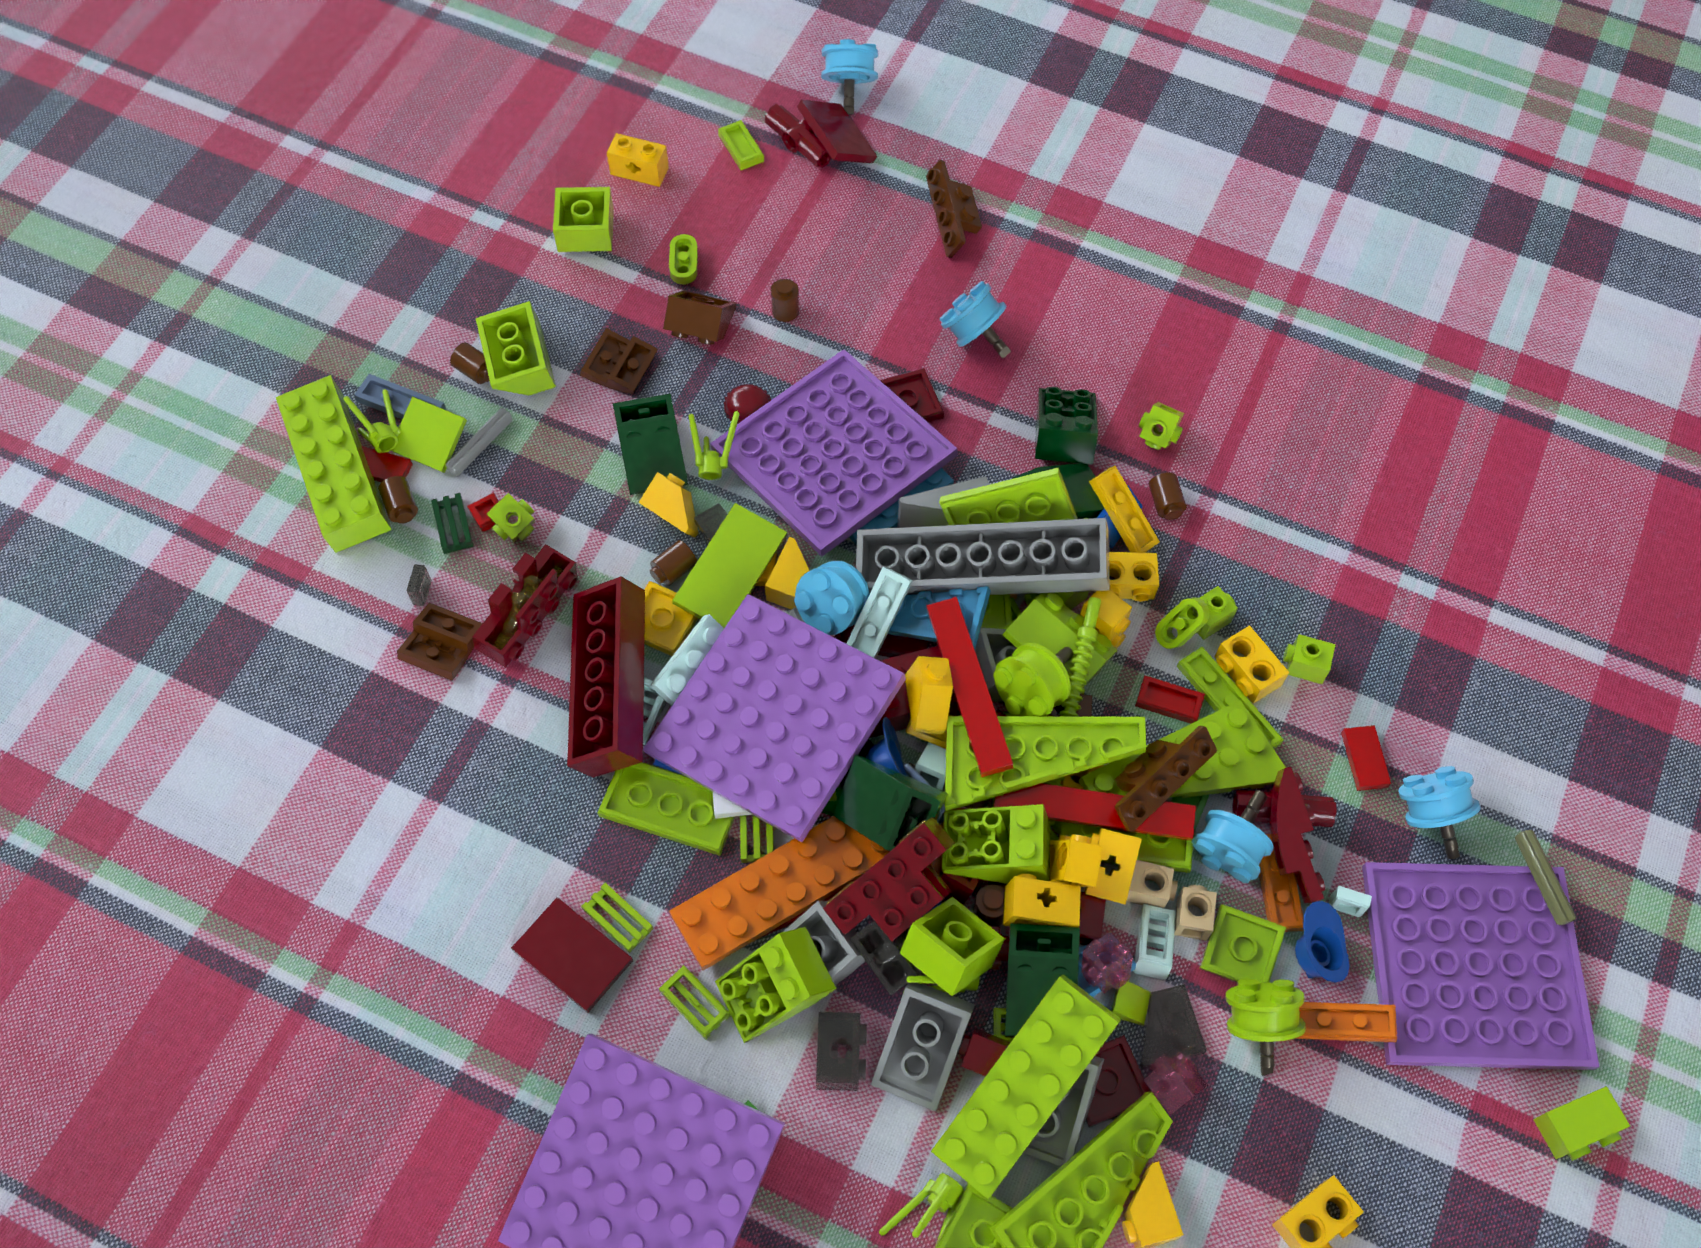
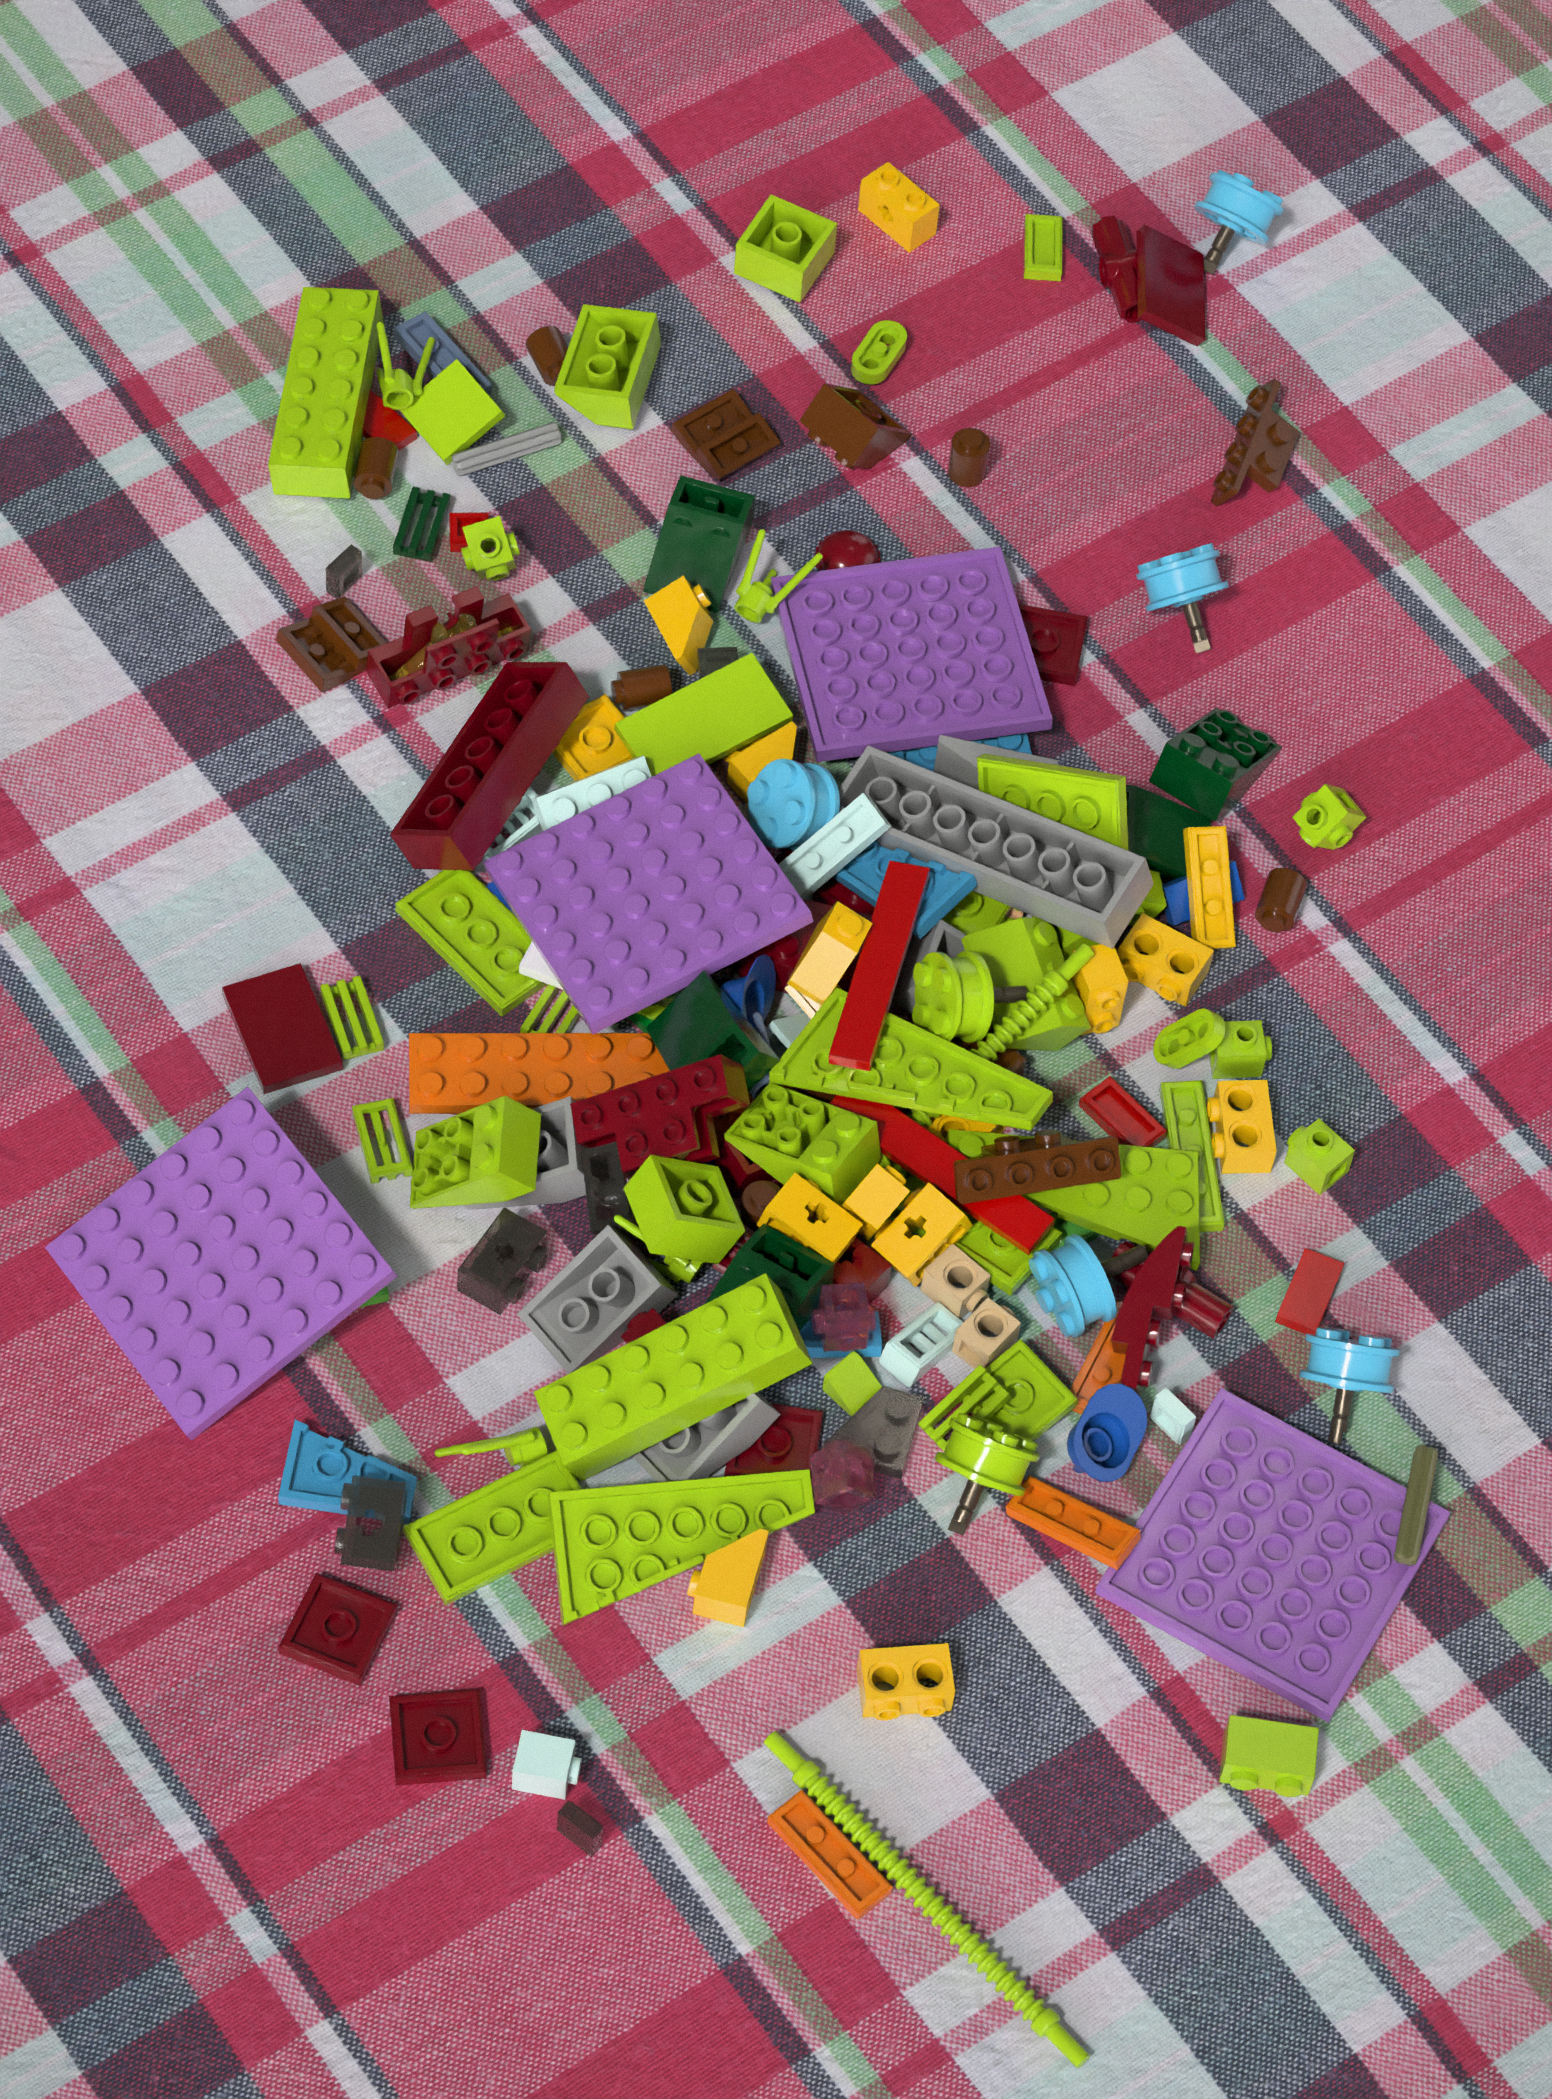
camera: 25 degrees right, 5 degrees down
(1227, 951) = (956, 1396): none -> lime tile

